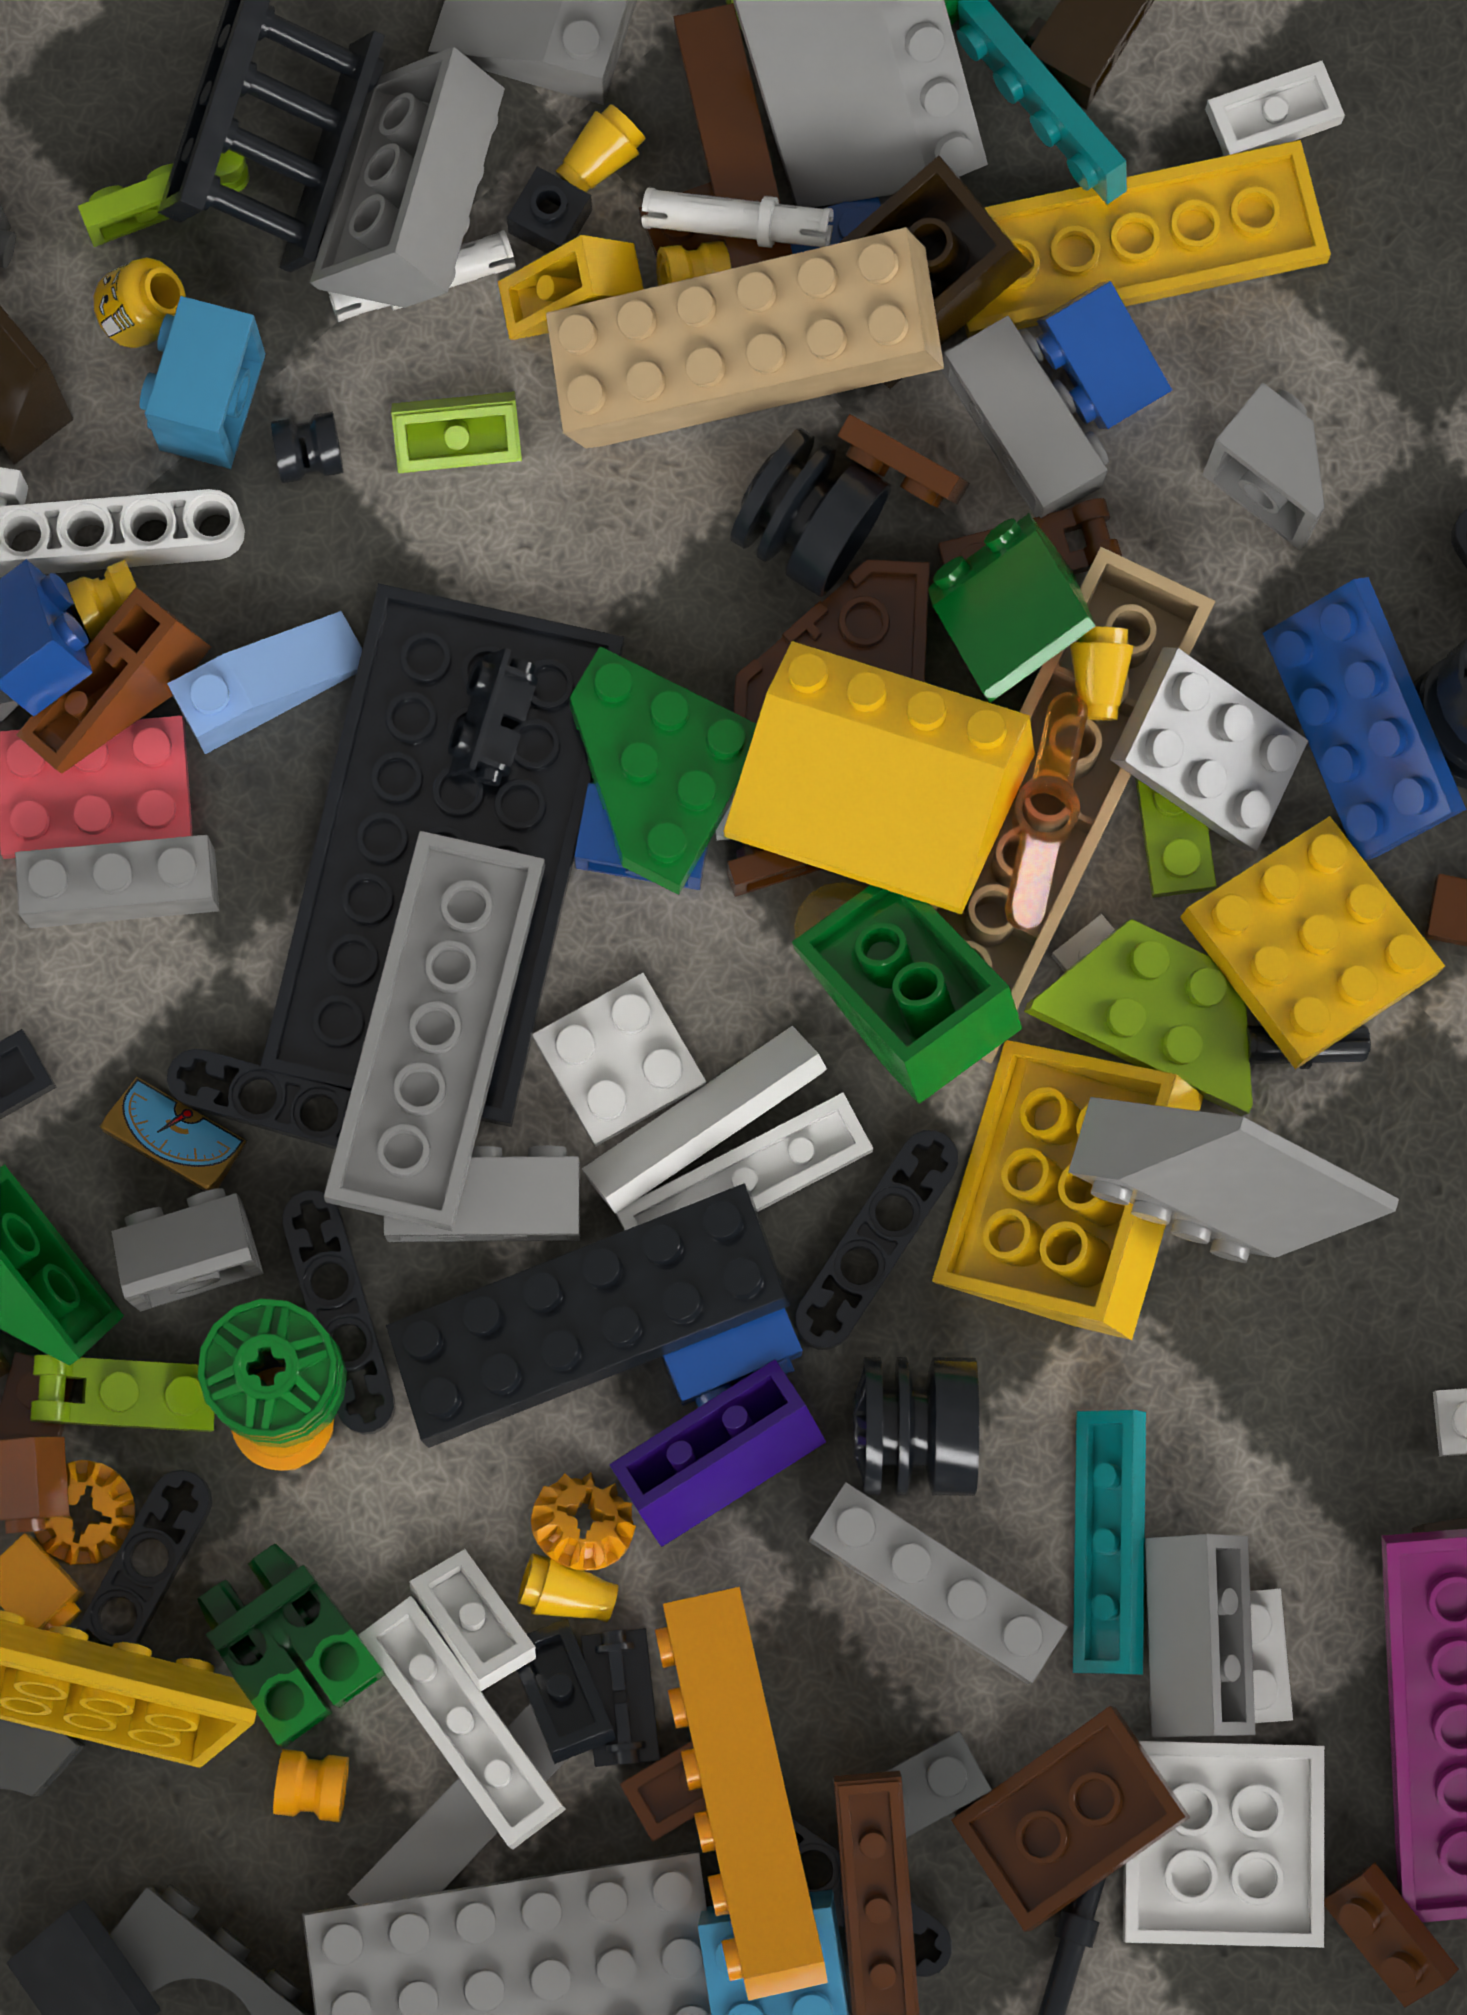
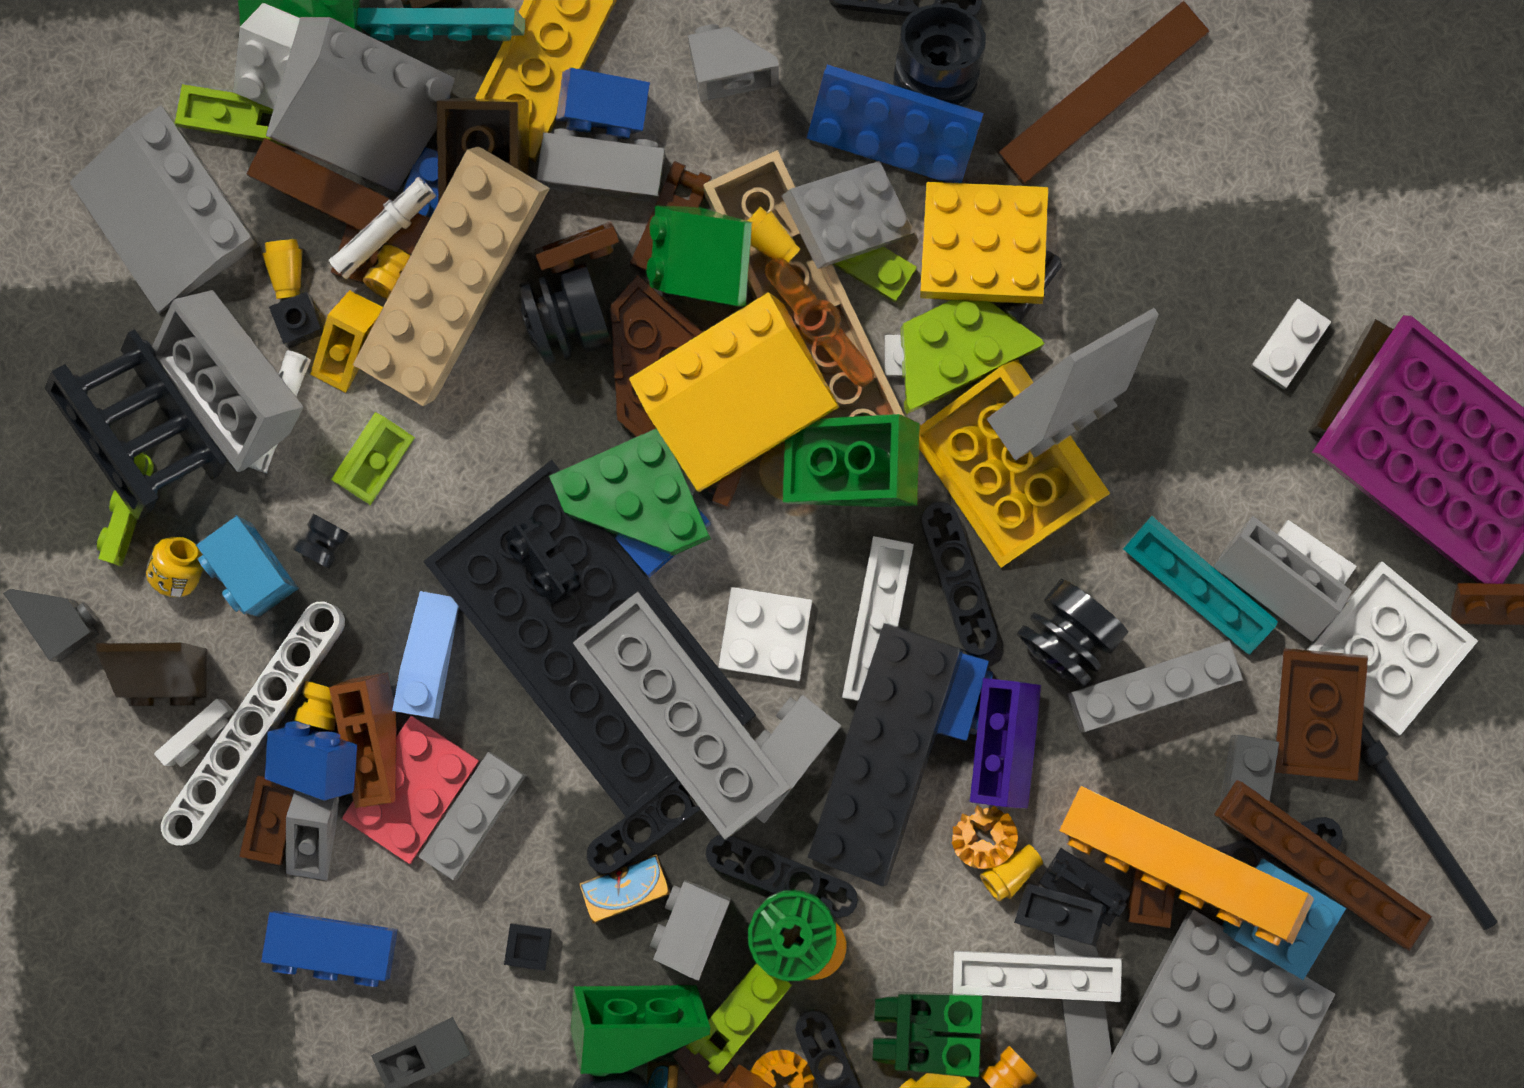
camera: 45 degrees left, 5 degrees up
(472, 1620) = (991, 930): white plate -> none
(704, 1119) = (830, 616): white tile -> none

